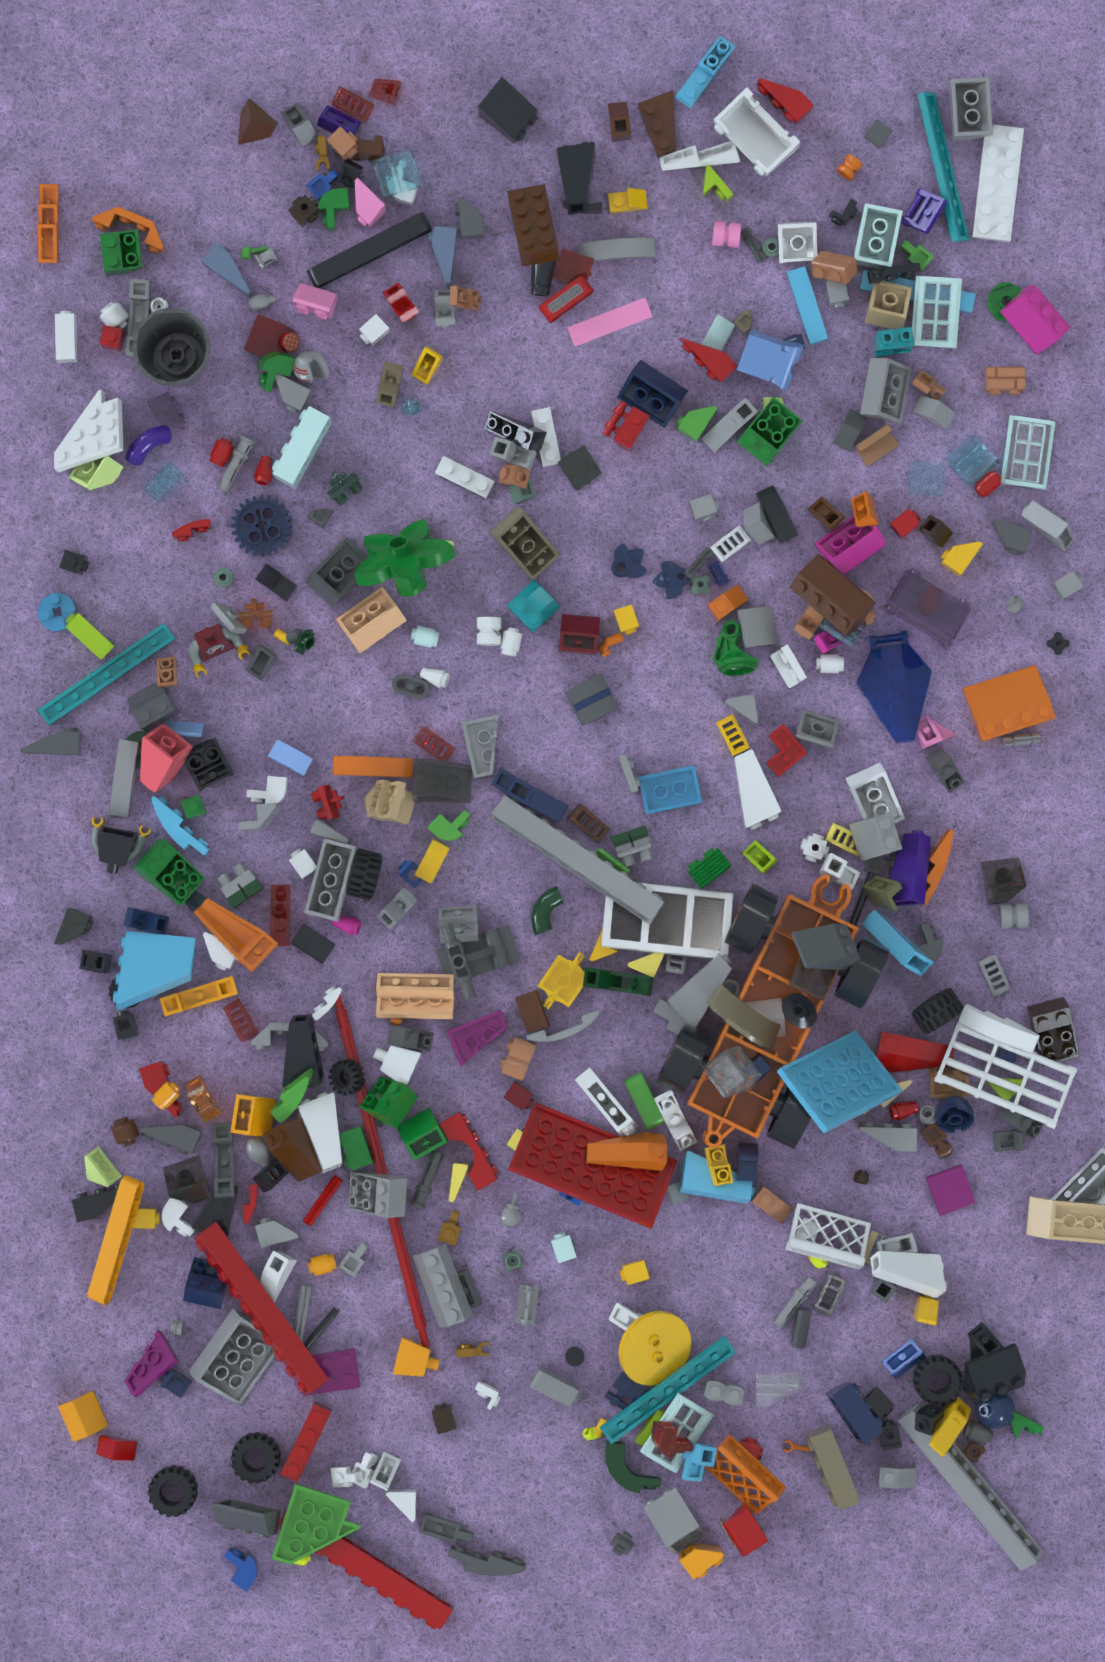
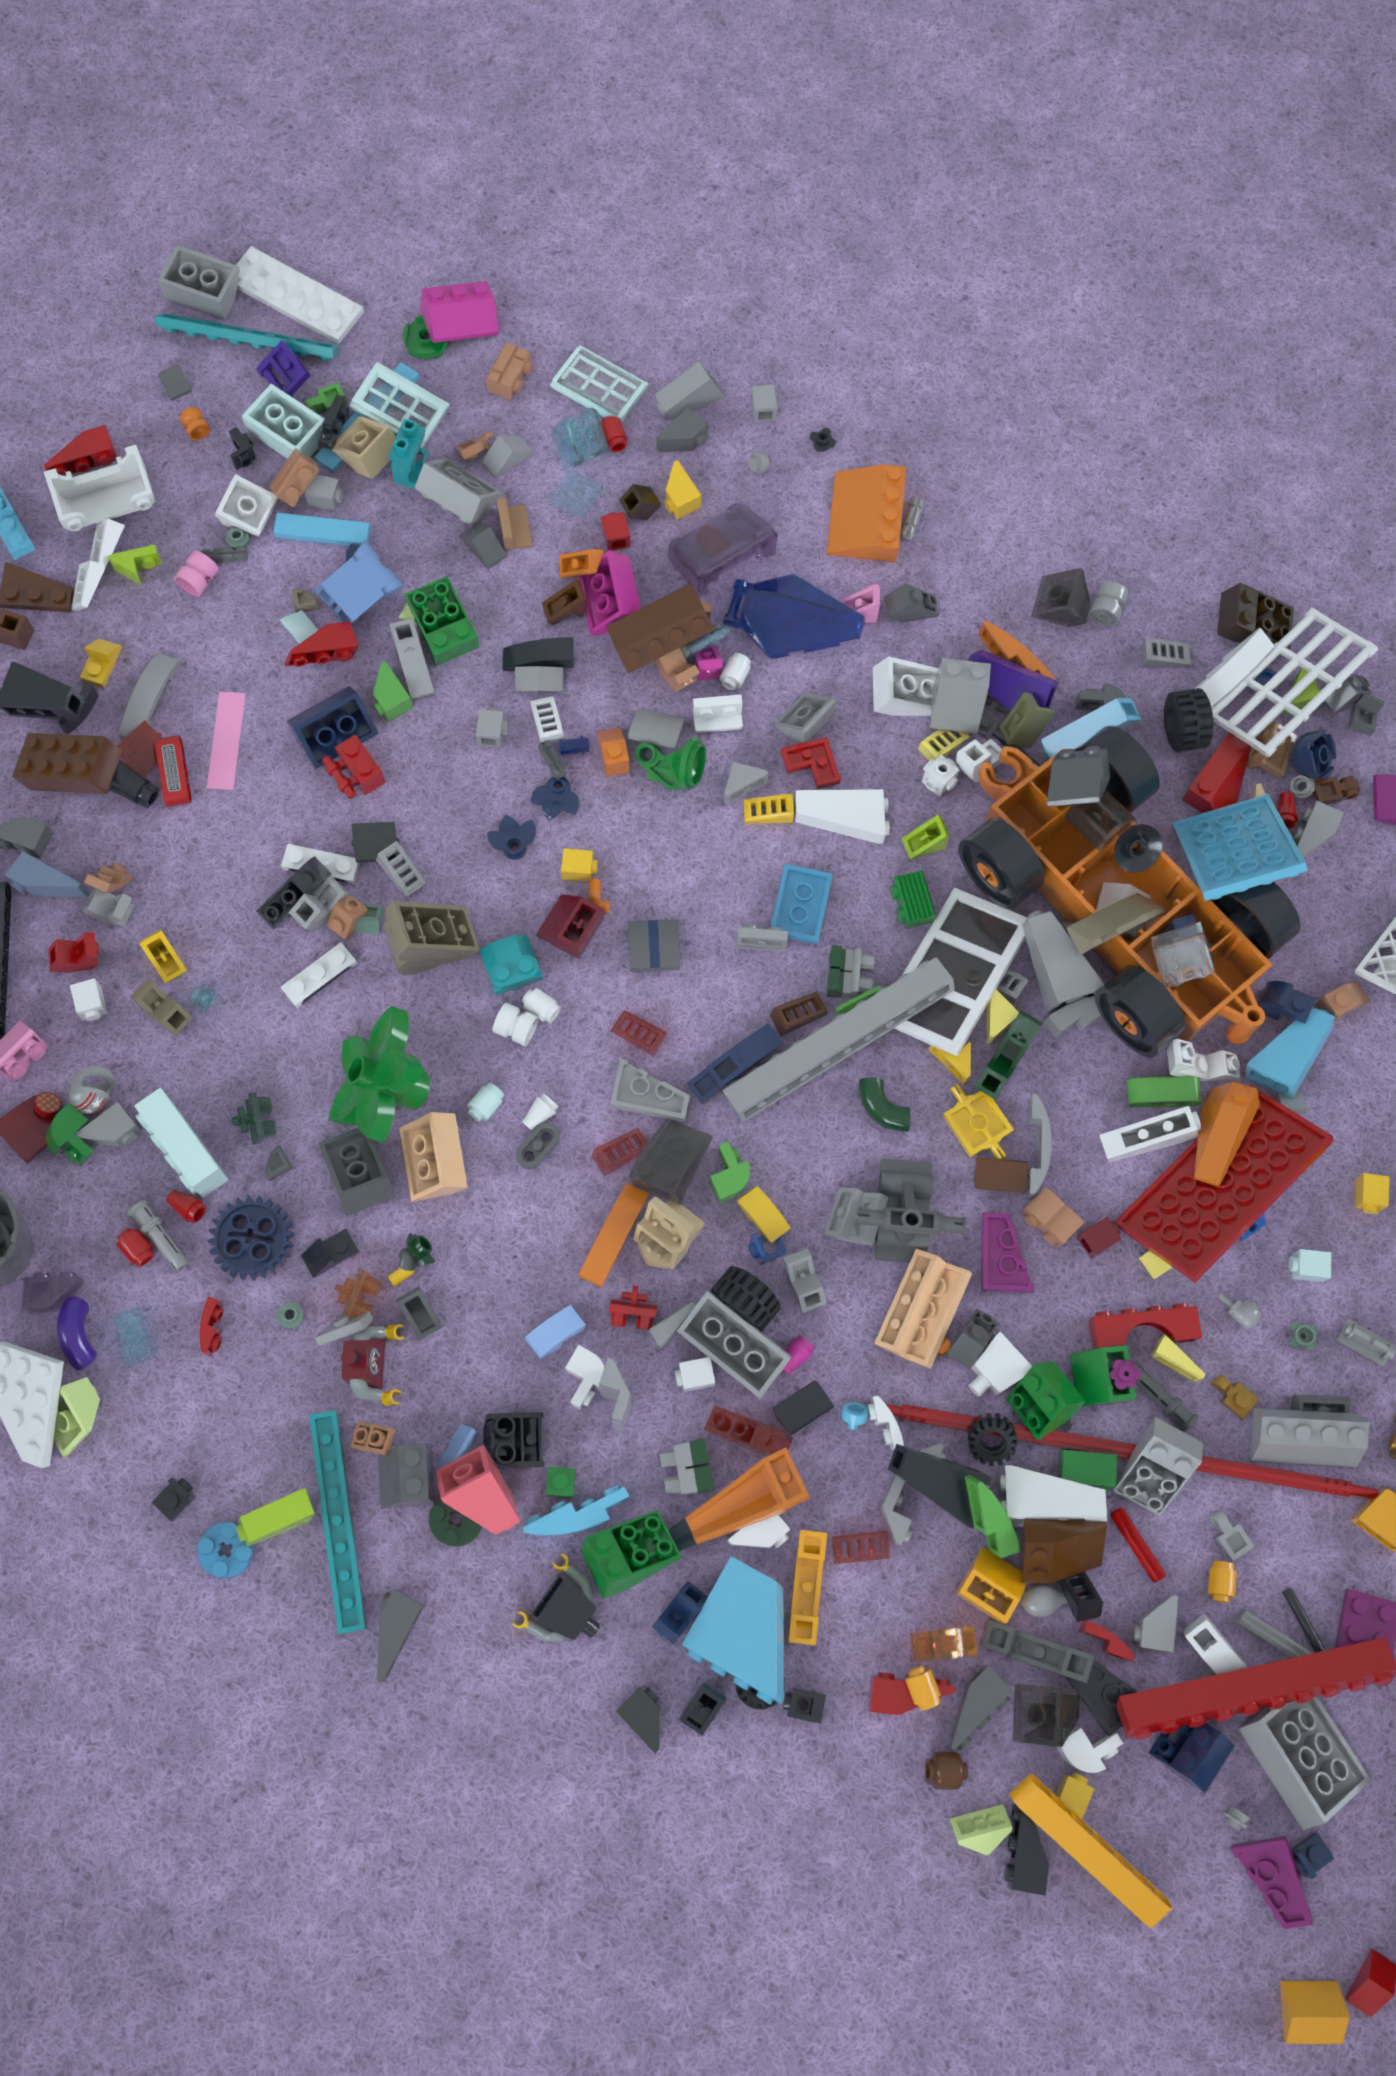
camera: 70 degrees left, 15 degrees down
(124, 778) = (481, 1557): light grey slope -> none
(324, 979) = (854, 1414): none -> medium azure tile
(430, 1142) = (1121, 1380): none -> magenta plant
(522, 734) = (651, 1049): none -> clear red slope
(566, 480) = (401, 856): none -> light grey slope
(704, 588) = (580, 776): sand green plate -> none
(718, 1165) = (1287, 1035): yellow slope -> none
(861, 1178) = (1348, 888): dark brown hinge -> none

